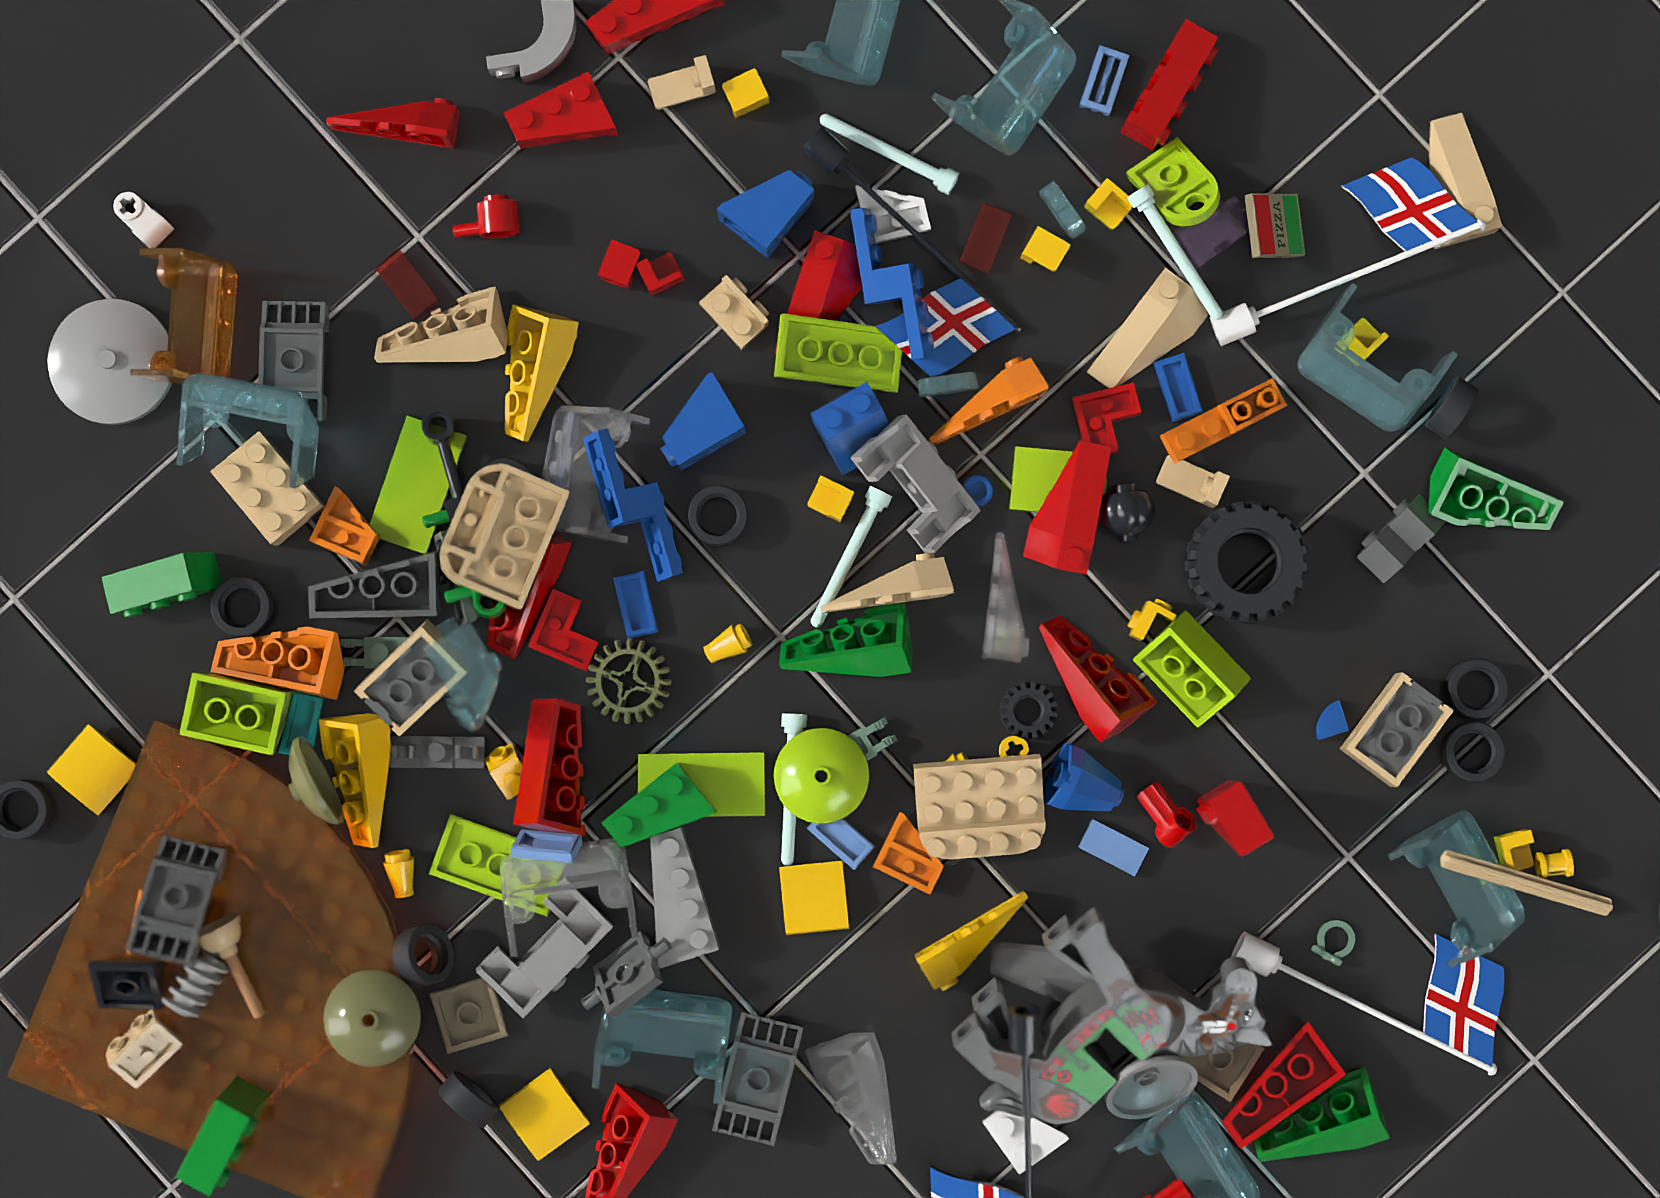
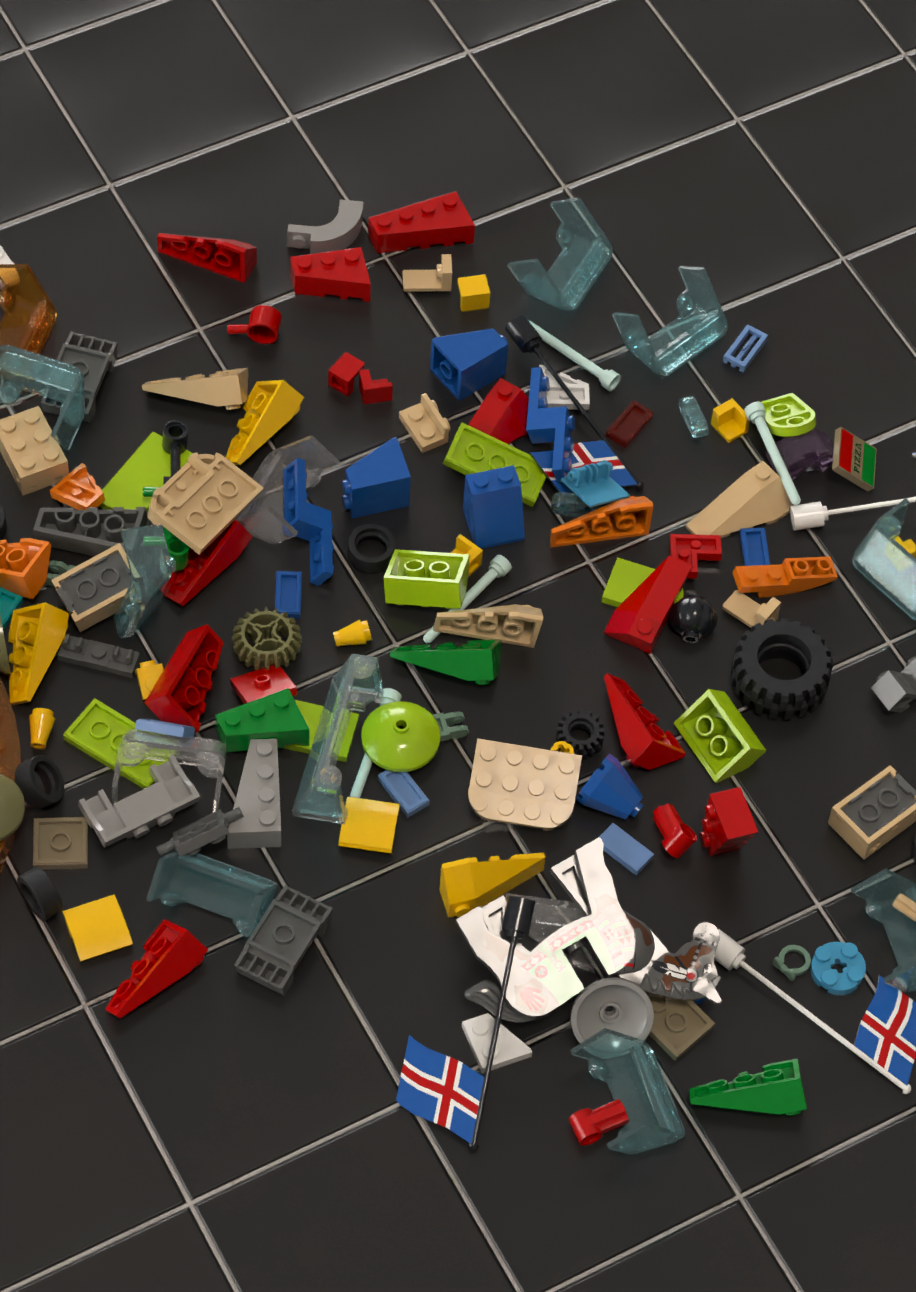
camera: 10 degrees right, 30 degrees down
(407, 285) = (181, 354): clear red tile -> none
(554, 632) = (220, 598): red plate -> none
(643, 751) = (261, 684): none -> red plate
(740, 888) = (320, 787): none -> clear windscreen
(797, 549) = (426, 579): none -> lime slope
(857, 1081) = (364, 964): clear wedge -> none
(907, 858) = (454, 814): orange wing -> none
(923, 477) = (539, 553): light grey bracket -> none
(968, 361) = (594, 484): none -> dark azure hinge
(979, 489) = (579, 582): blue tile -> none
(1004, 623) = (574, 668): clear wedge -> none
(1045, 249) = (673, 433): yellow panel -> none
(1142, 620) = (689, 693): yellow bracket -> none
(1169, 85) = (792, 357): red wedge -> none
(1287, 1083) = (724, 1051): red wedge -> none
(1331, 721) = (824, 801): blue tile -> none
(1380, 954) = (845, 955): none -> dark azure plate

